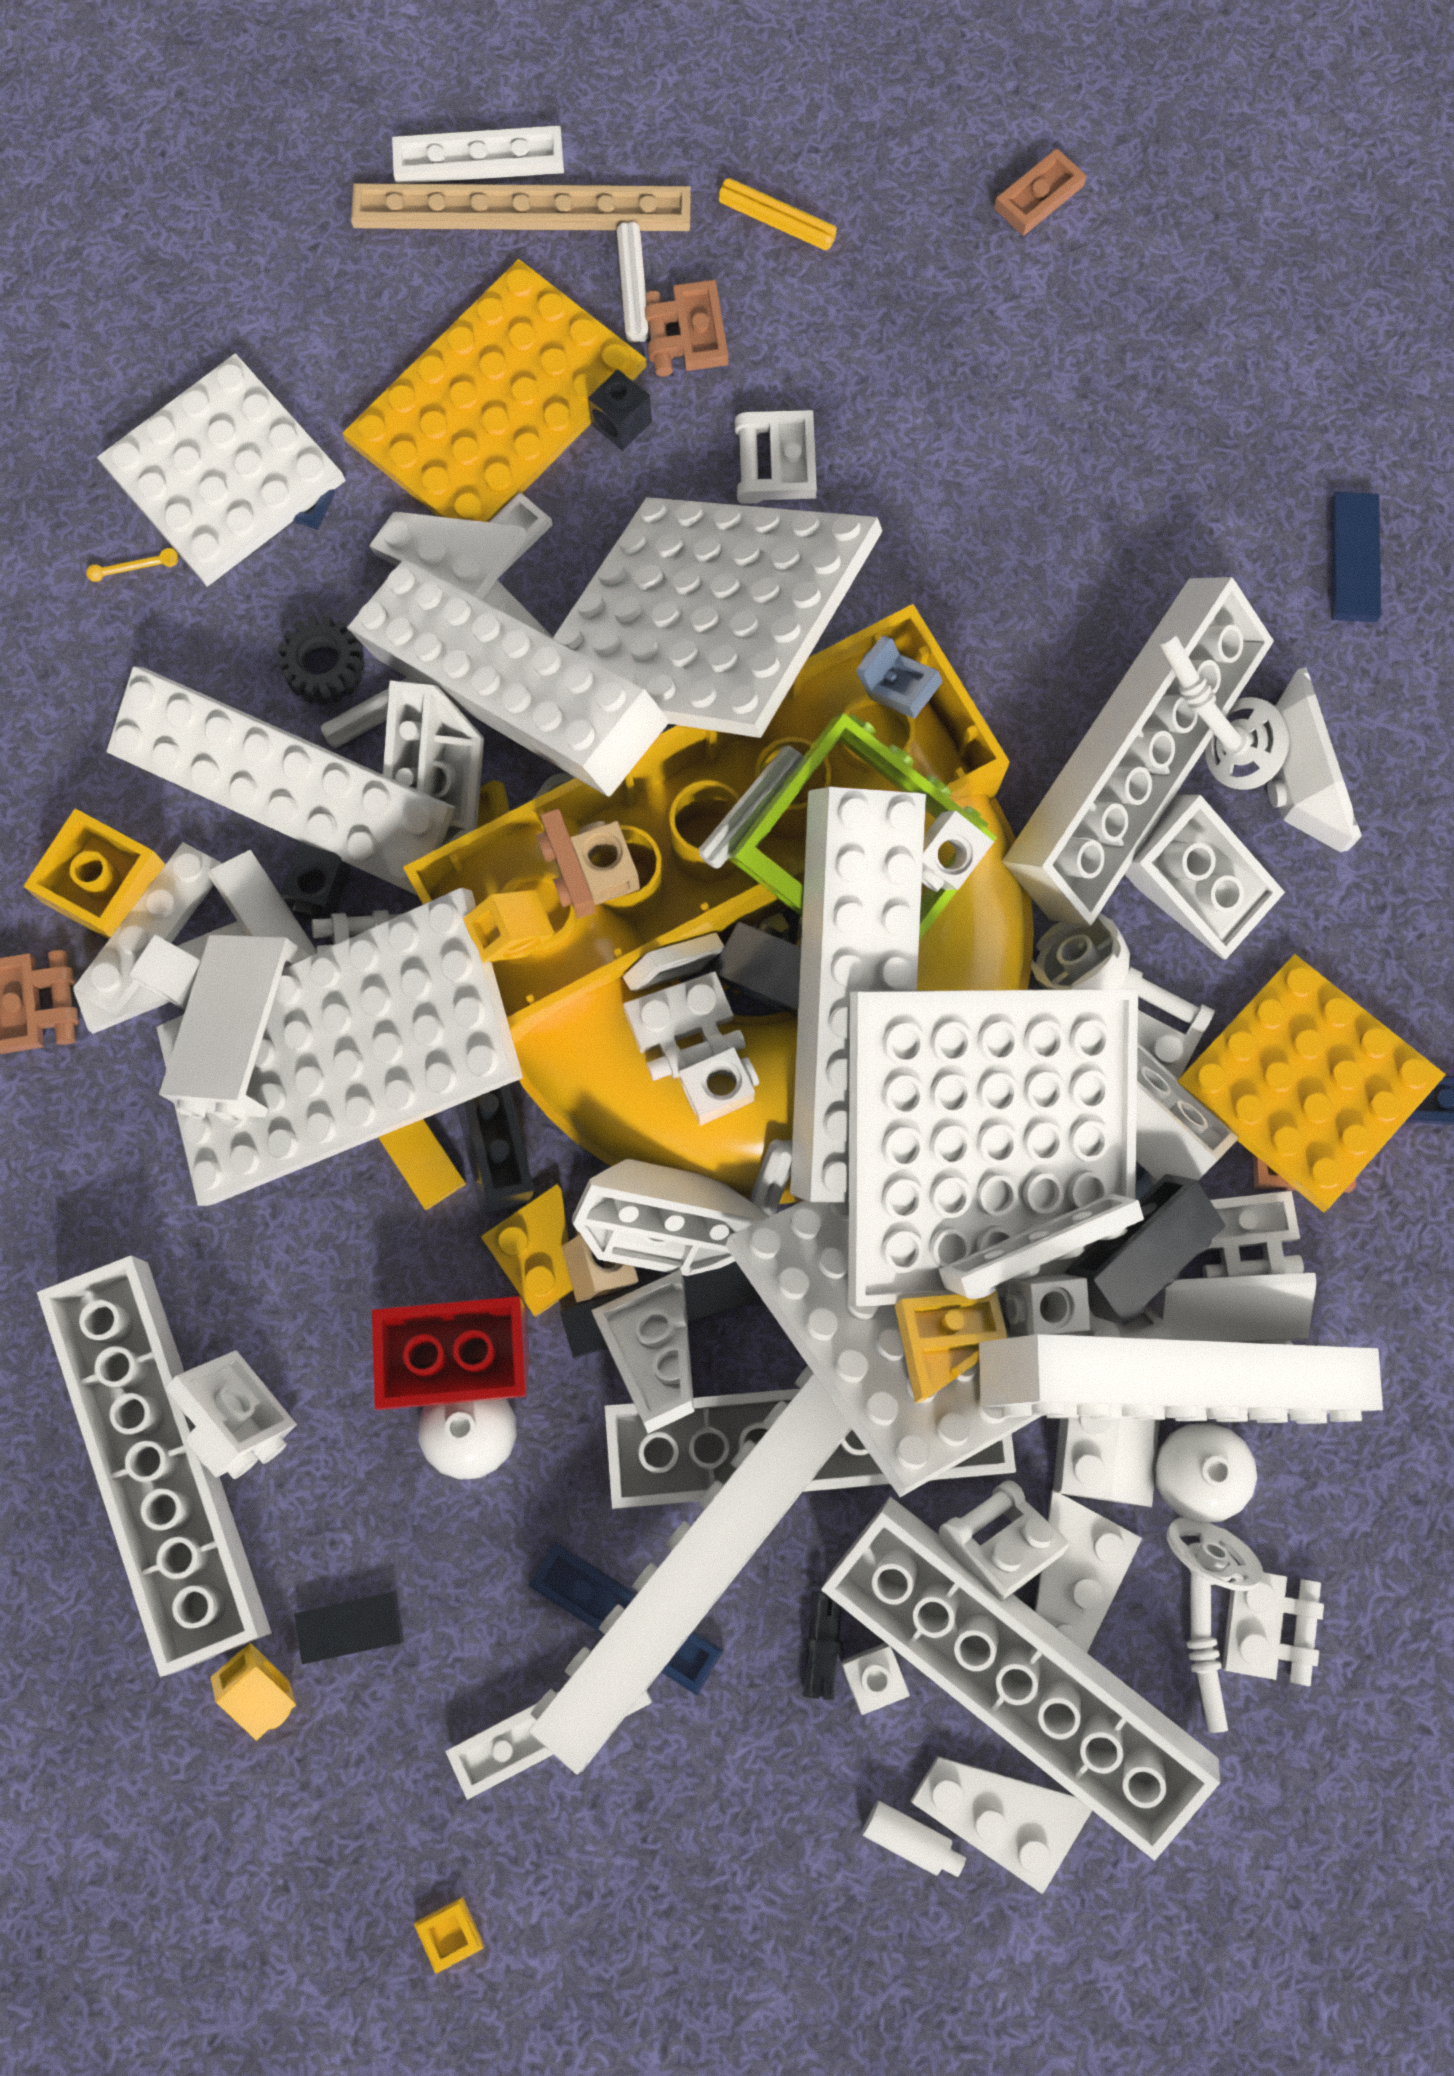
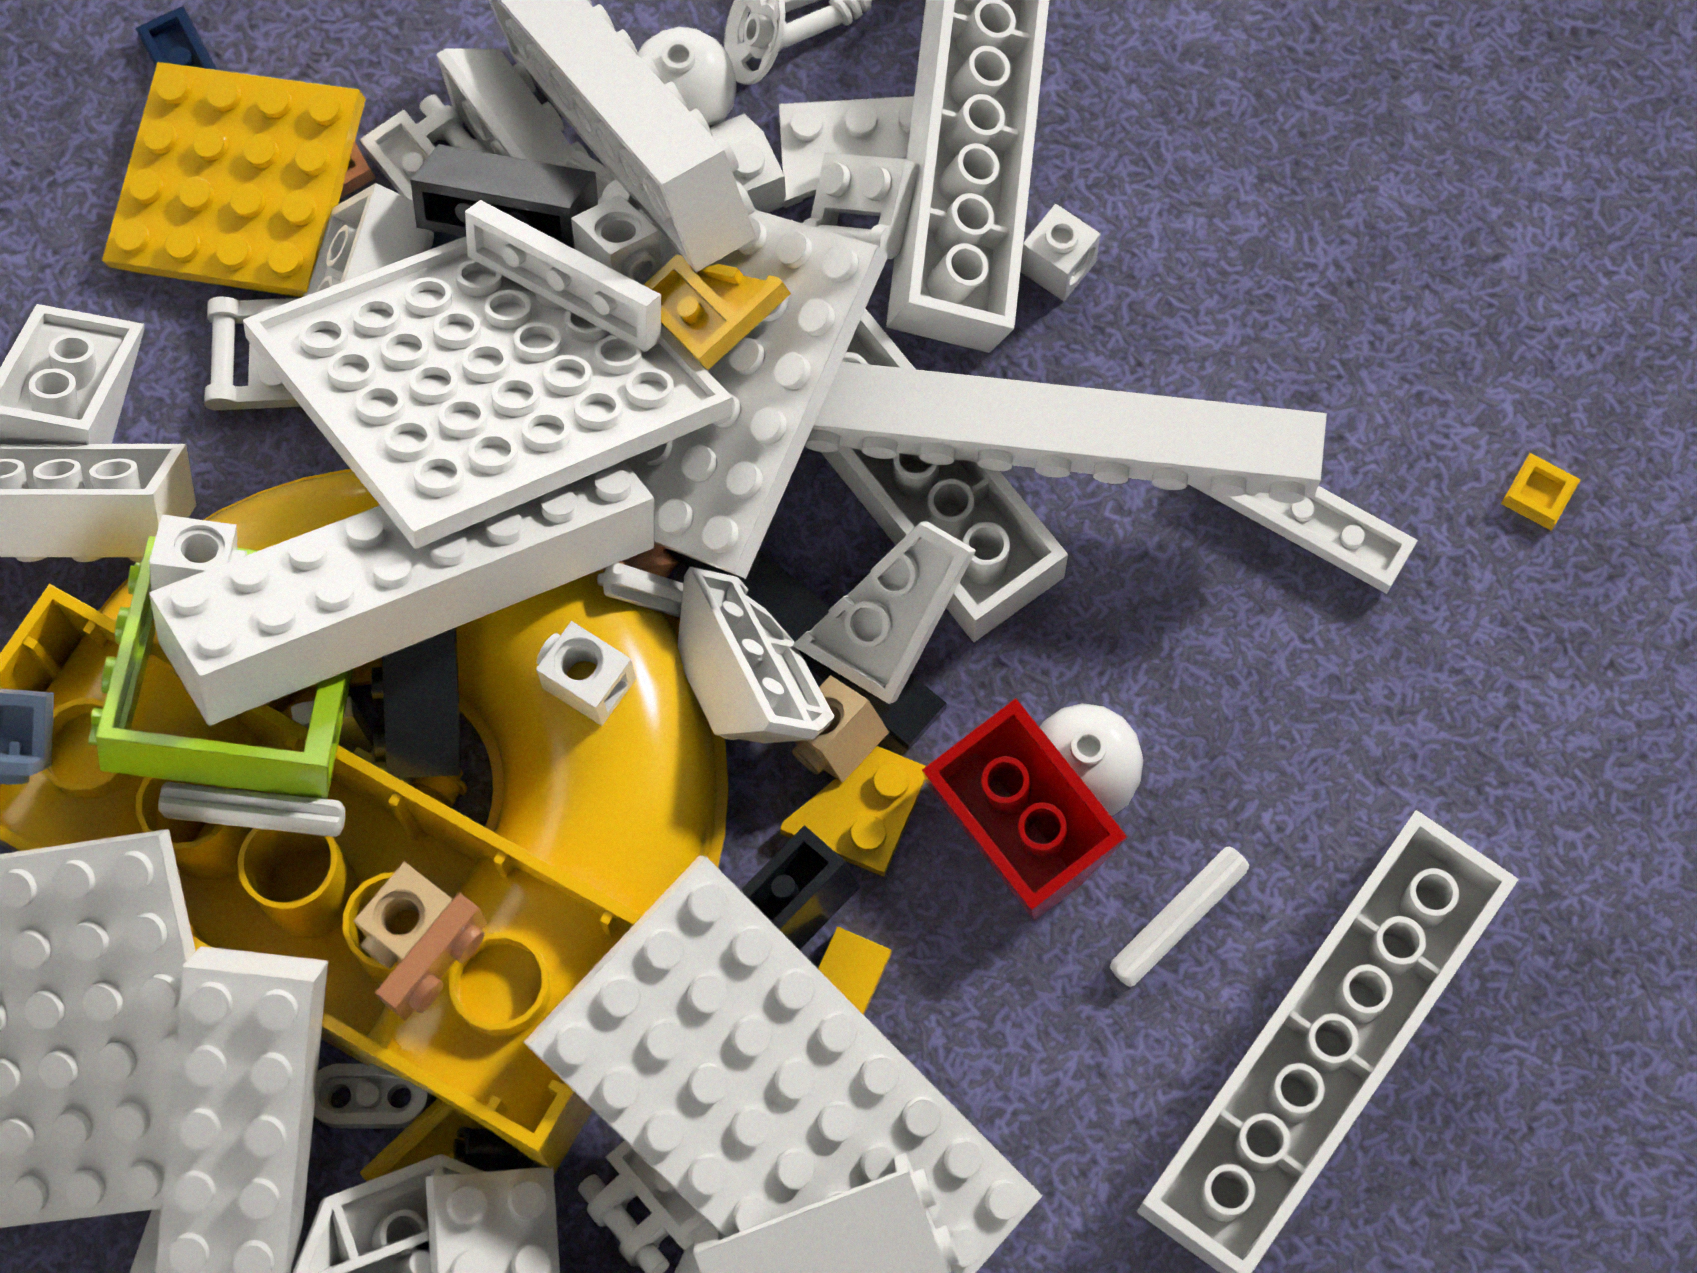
camera: 120 degrees left, 5 degrees down
(231, 1414) = (1226, 986): white plate -> none
(253, 1691) = (1468, 795): yellow brick -> none
(317, 1425) = (1179, 916): none -> white axle
(348, 1627) = (1346, 756): black tile -> none
(508, 925) = (542, 968): yellow brick -> none
(594, 1594) = (1158, 551): dark blue tile -> none
(673, 962) = (479, 808): white tile -> none
(677, 1014) = (529, 768): white plate -> none
(822, 1647) = (1062, 317): black pin -> none
(912, 1840) = (1176, 152): white cylinder -> none
(1005, 1818) = (1104, 91): white wing -> none
(1082, 956) = (230, 440): white cylinder -> none

